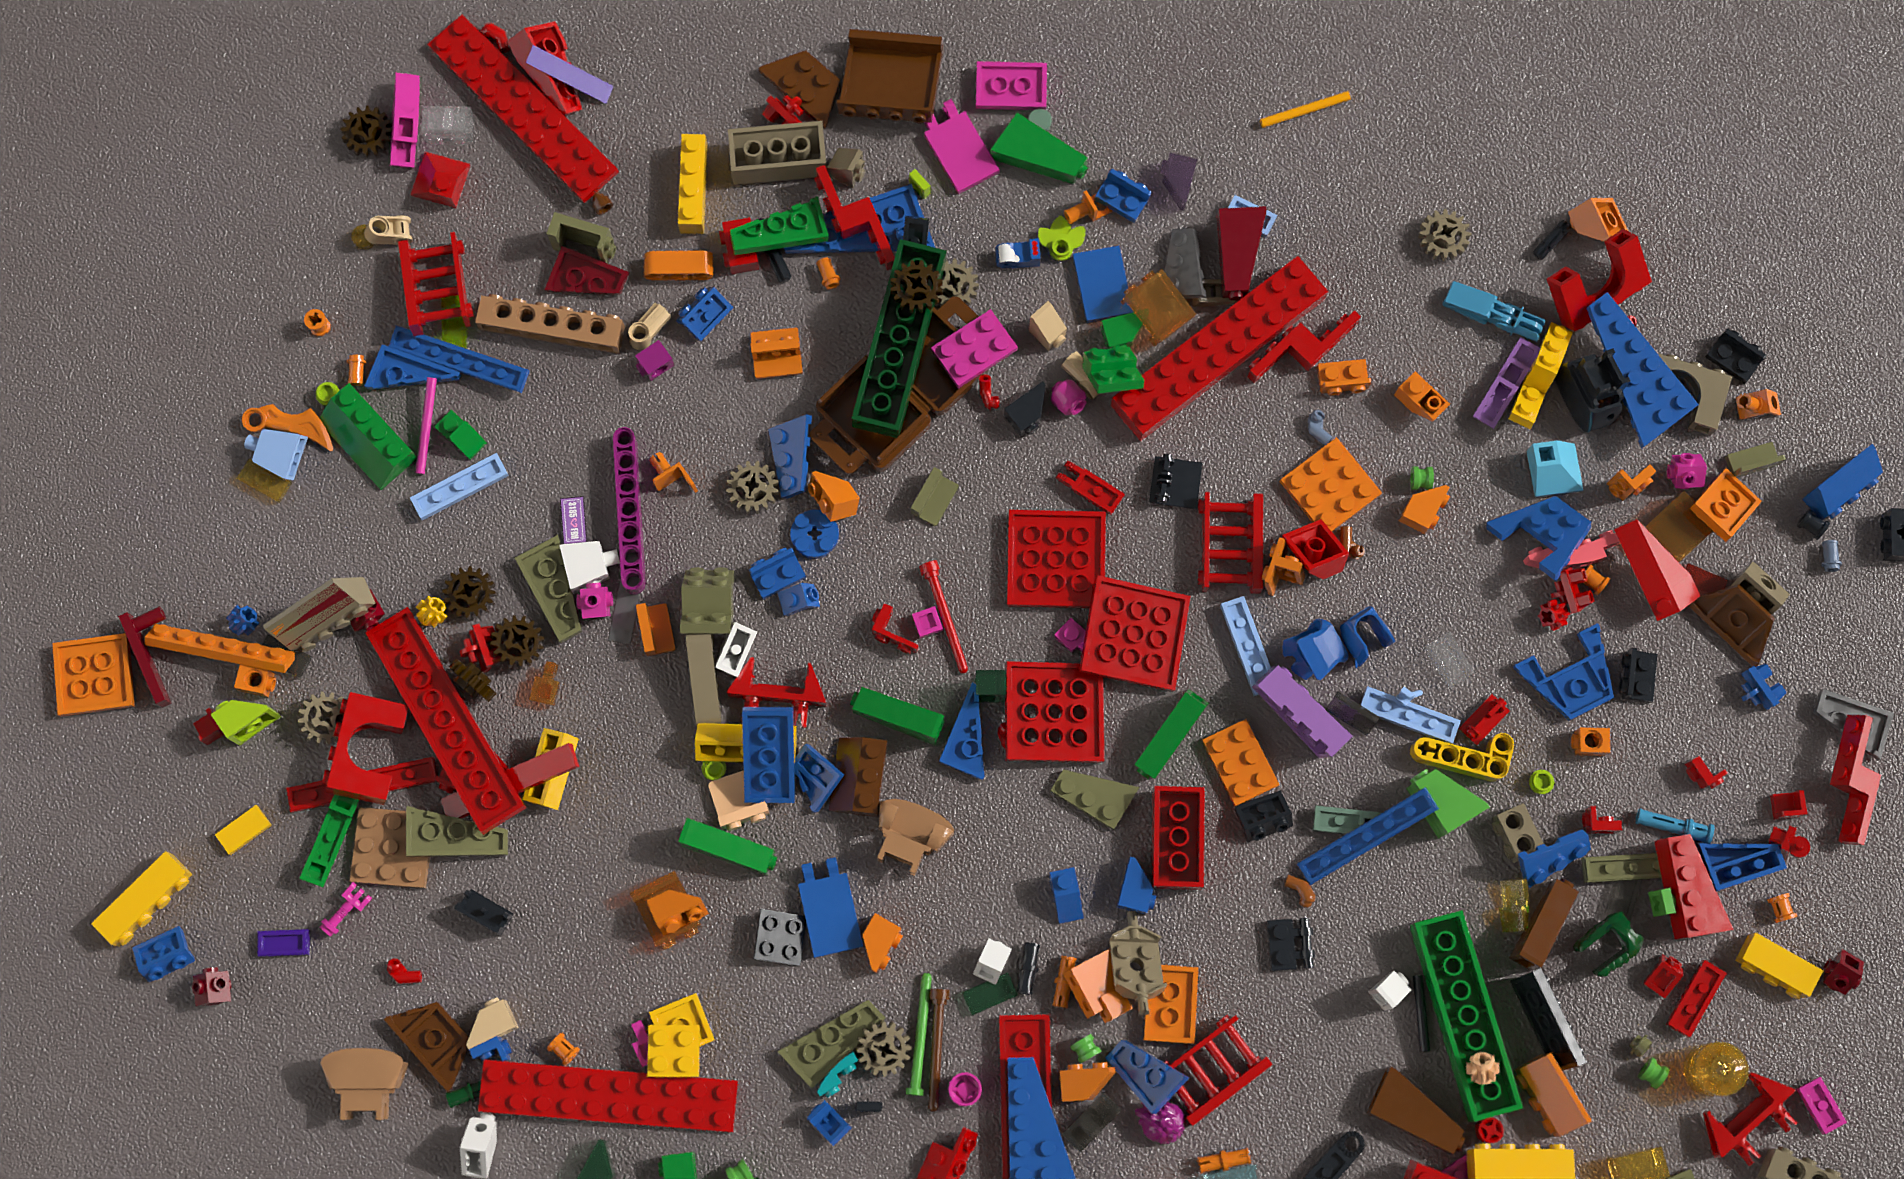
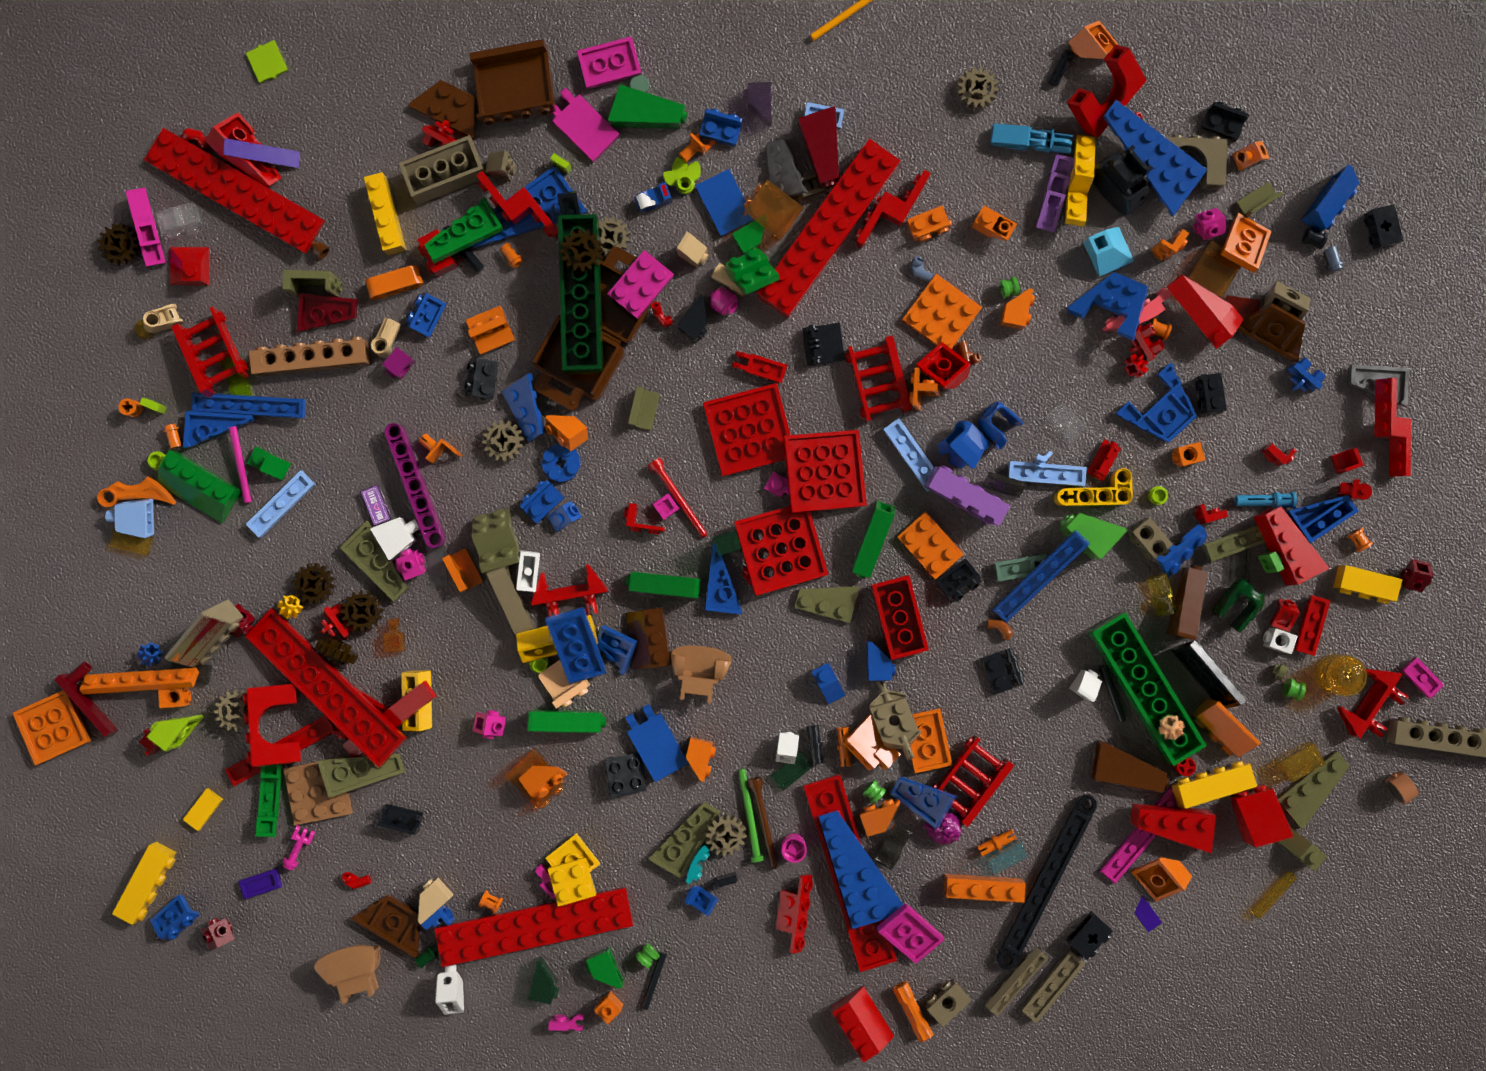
camera: 10 degrees left, 10 degrees up
(345, 327) = (153, 405): none -> lime tile
(630, 824) = (489, 724): none -> dark pink brick
(748, 406) = (481, 378): none -> black bracket
(1660, 1005) = (1287, 640): none -> white brick

